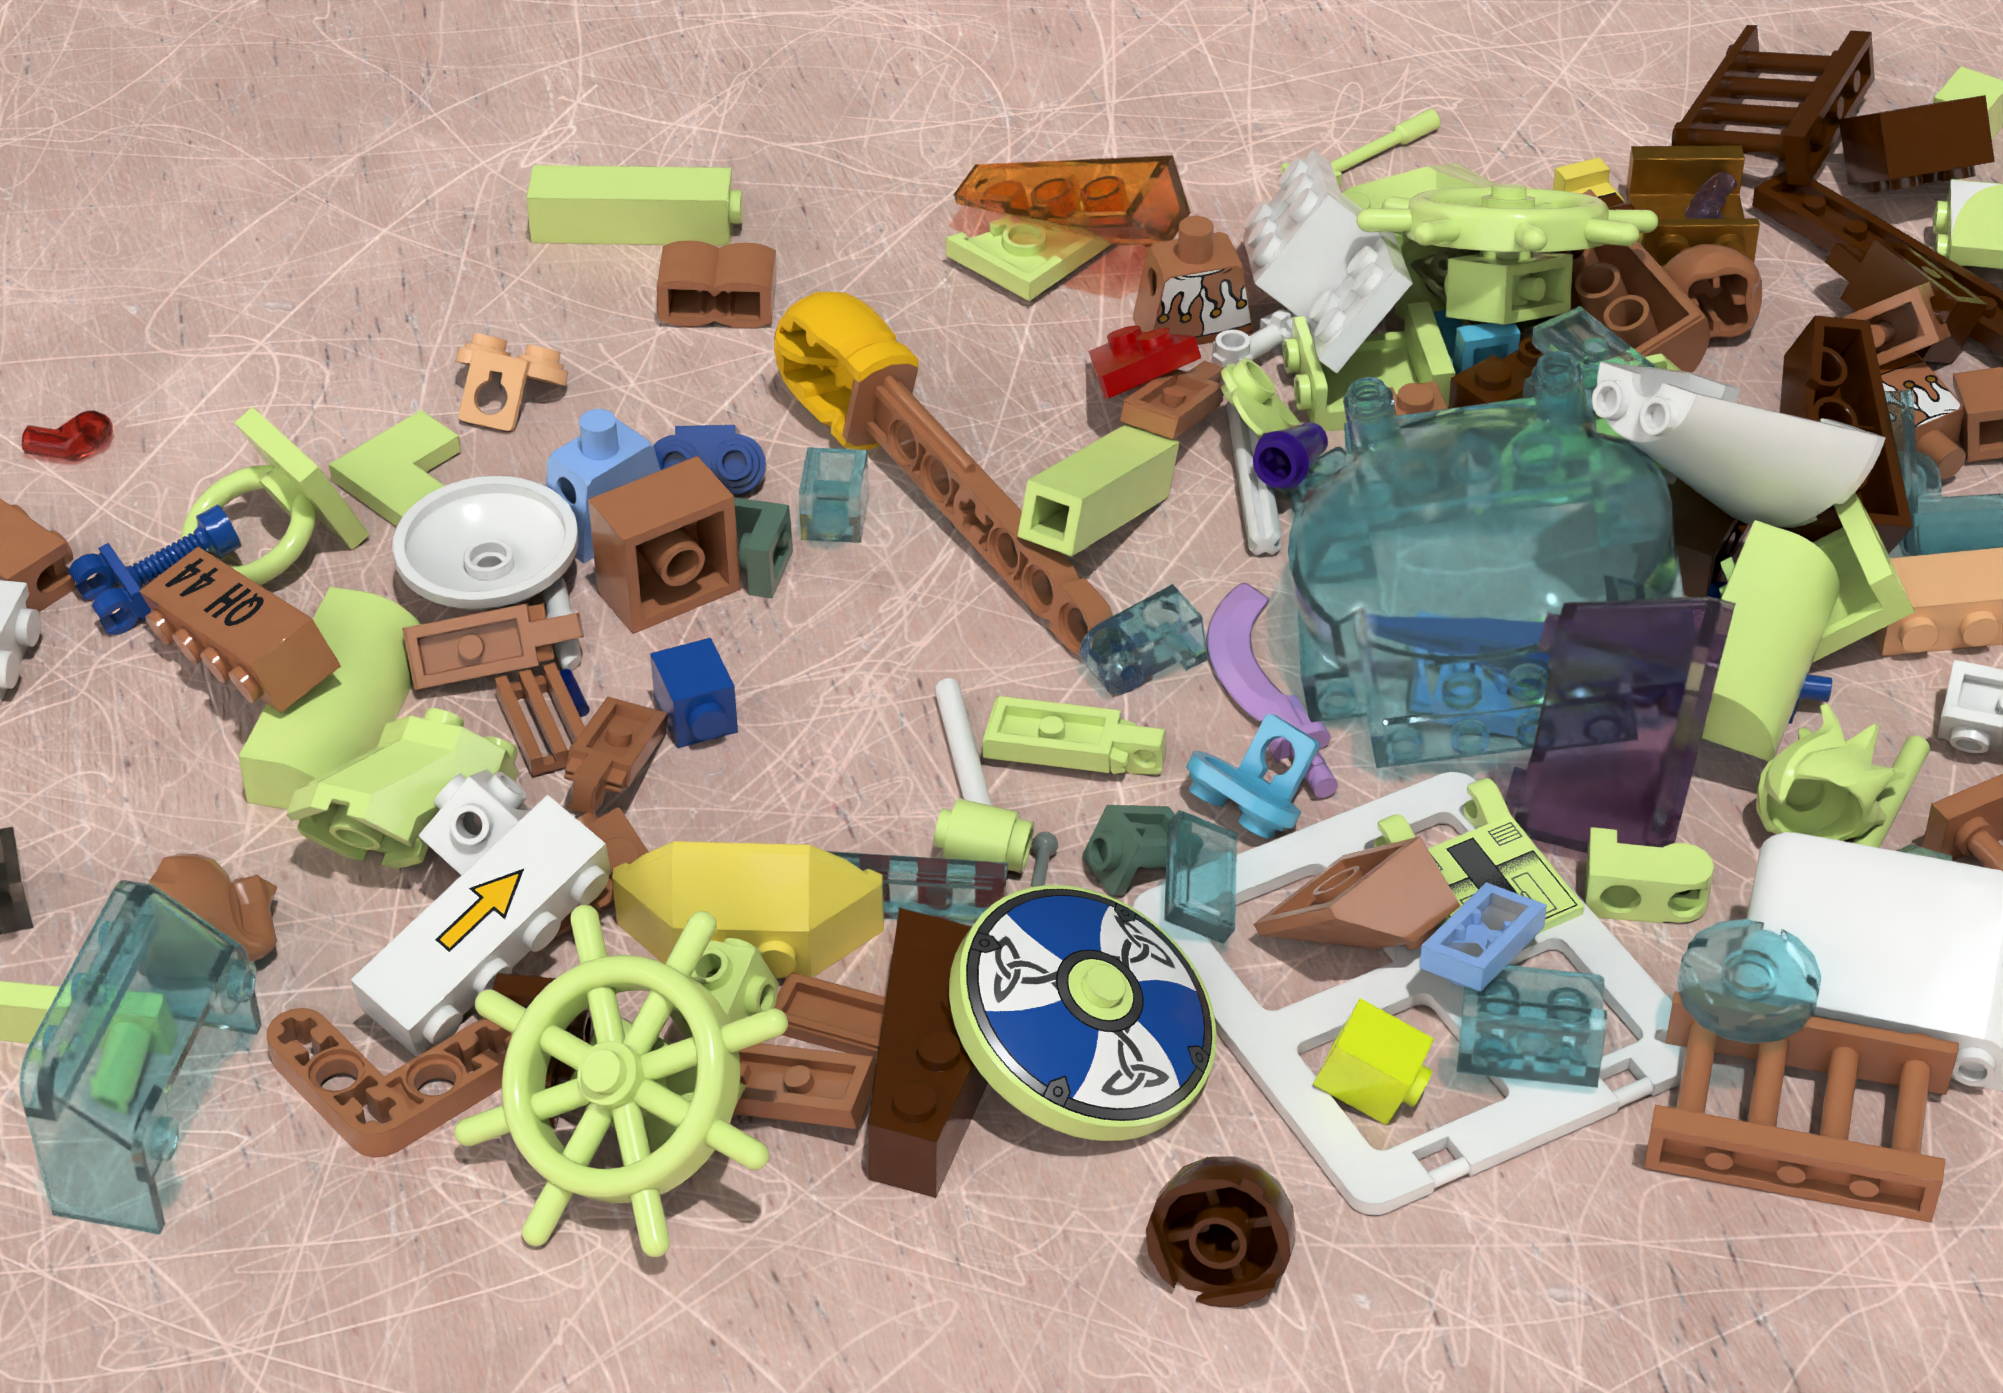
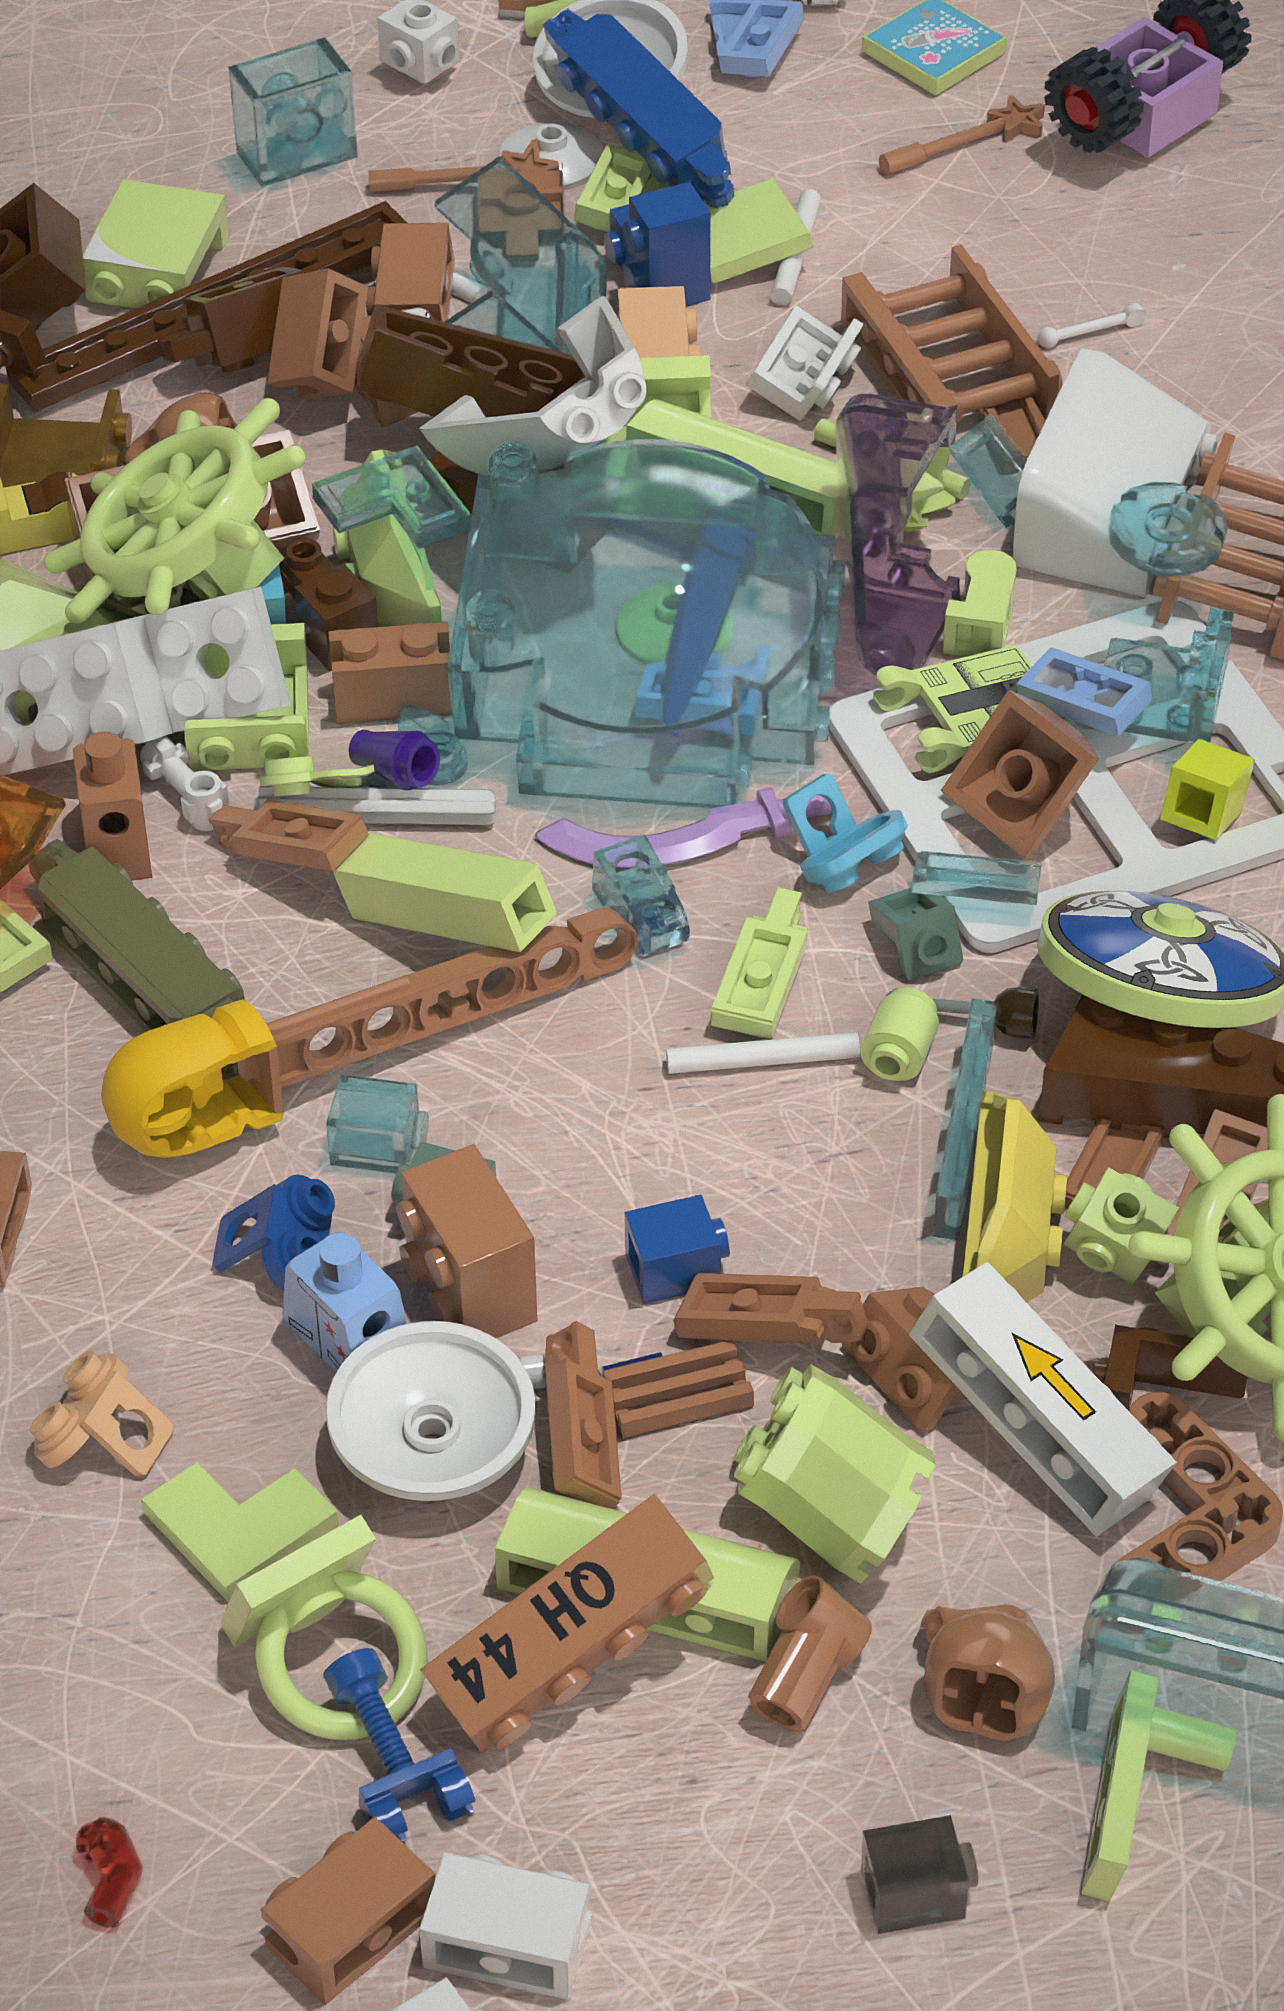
camera: 85 degrees left, 5 degrees up
(234, 803) = (816, 1639): none -> nougat piece
(473, 816) = (916, 1385): white brick -> none
(1026, 337) = (127, 940): none -> olive hinge
(1140, 356) = (212, 862): red wing -> none
(1711, 197) = (50, 431): piece -> none

